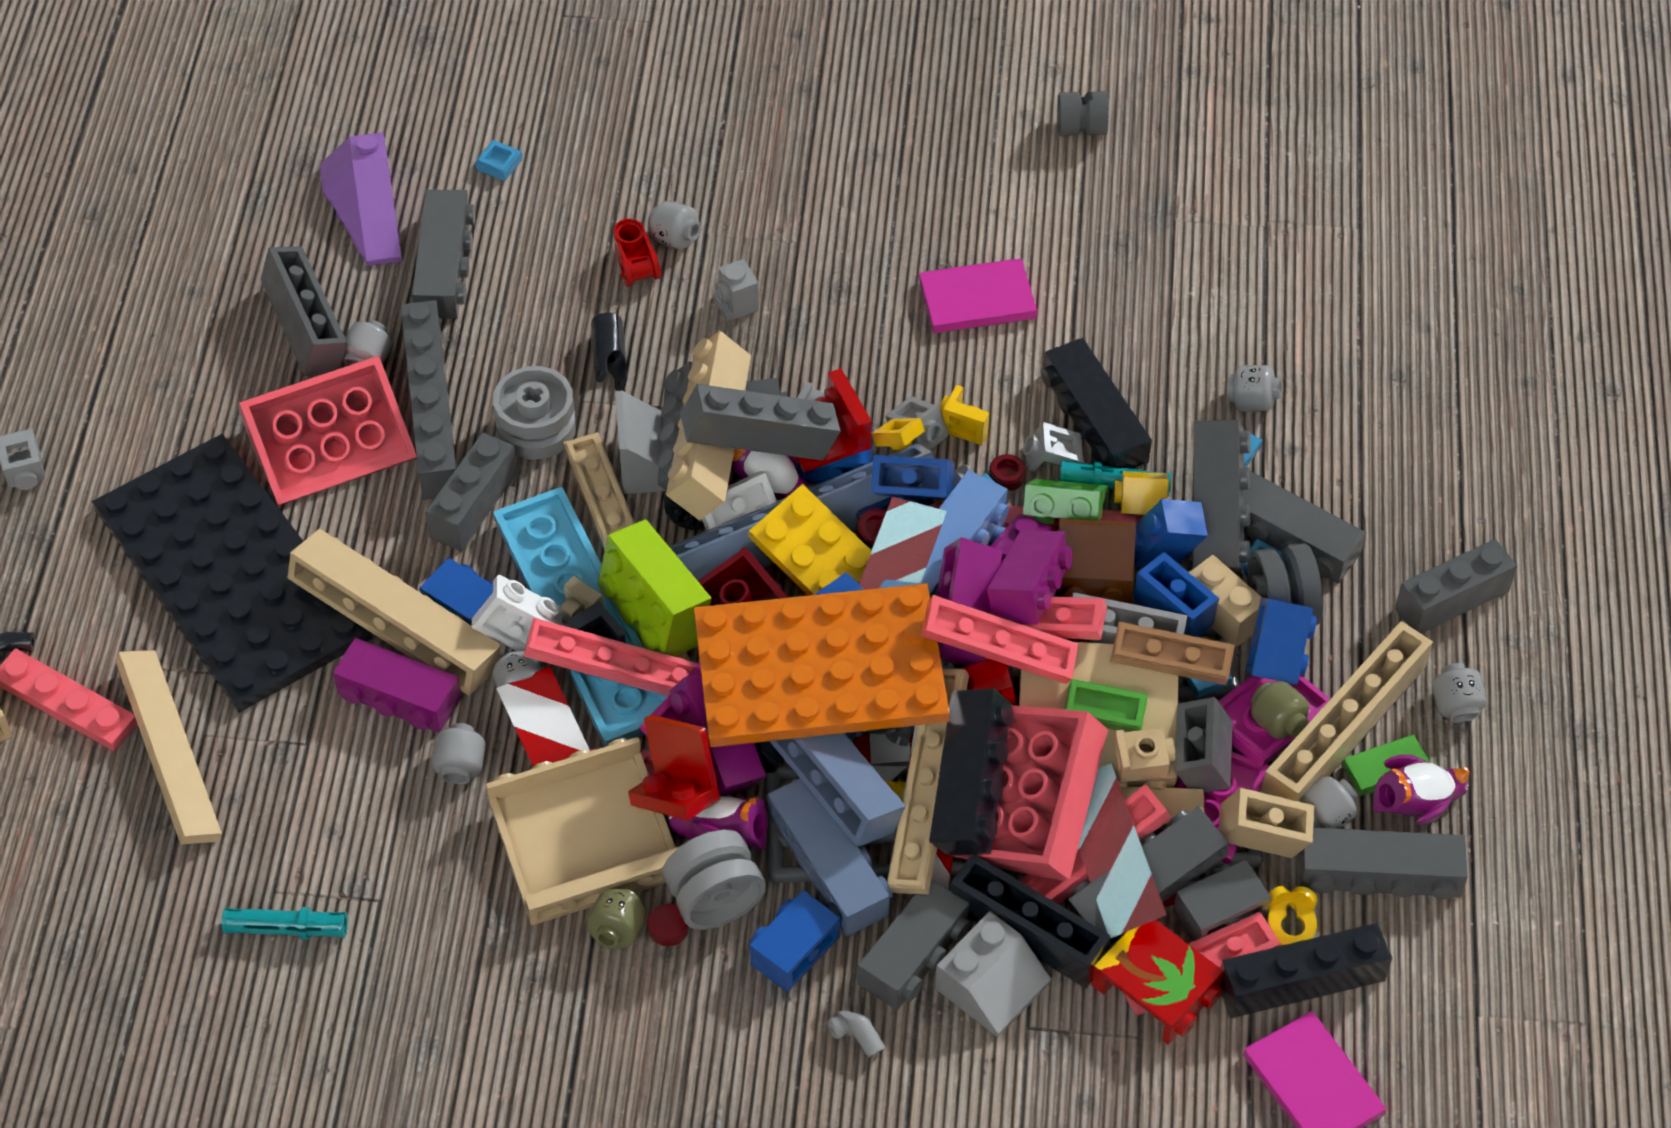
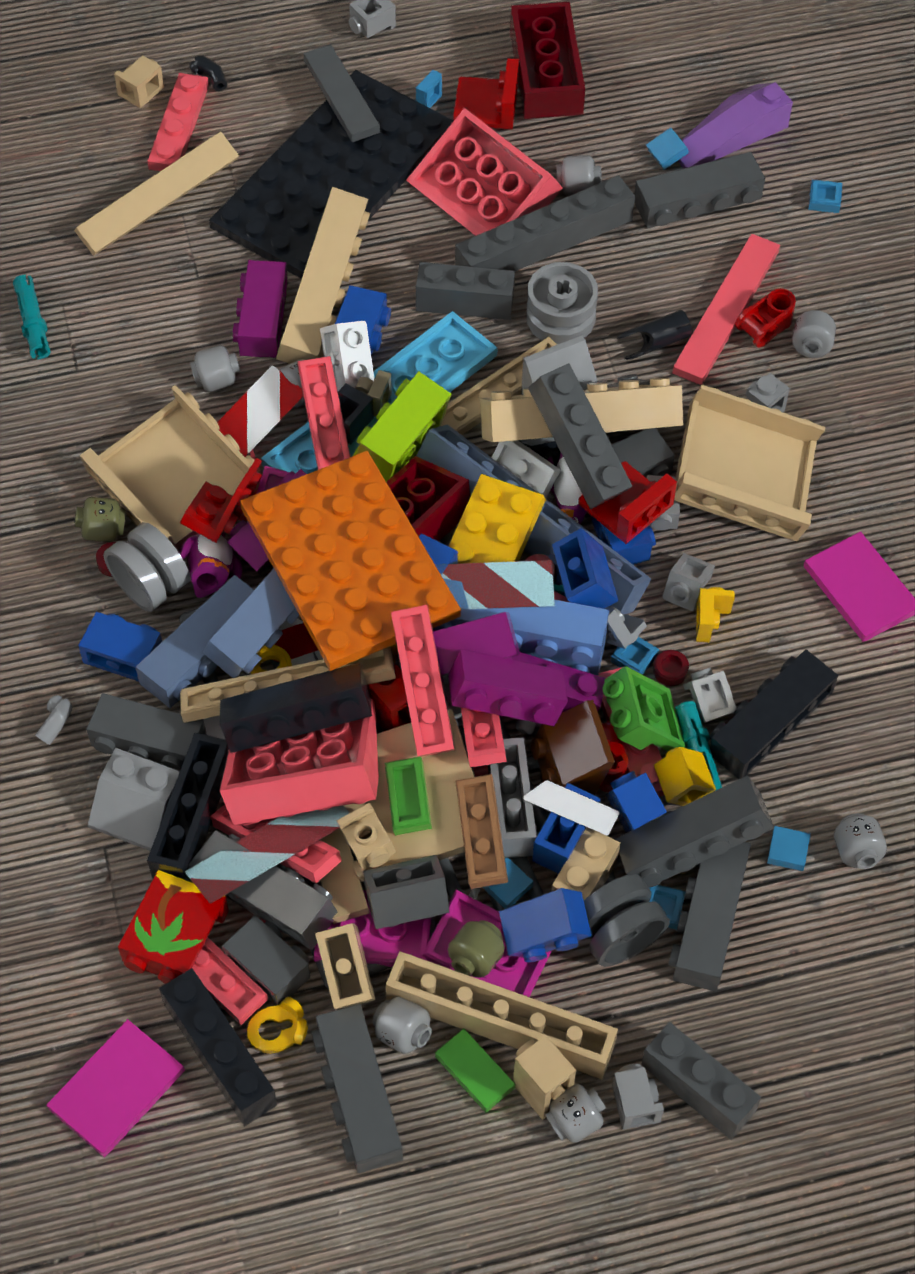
camera: 70 degrees right, 5 degrees up
(129, 518) = (341, 93): none -> dark grey tile
(167, 438) = (429, 89): none -> dark azure tile
(193, 319) = (548, 60): none -> dark red brick
(212, 388) = (490, 99): none -> red bracket
(303, 310) = (589, 121): dark grey brick -> none
(368, 262) = (667, 148): none -> dark azure tile
(601, 285) = (724, 309): none -> coral tile
(810, 325) = (747, 462): none -> tan panel
(898, 433) = (655, 561): yellow plate -> none
(1165, 575) = (573, 806): none -> white sticker
(1418, 788) = (446, 1100): magenta animal -> none
(1425, 699) = (542, 1074): none -> tan brick
(1456, 642) = (636, 1097): none -> light grey brick

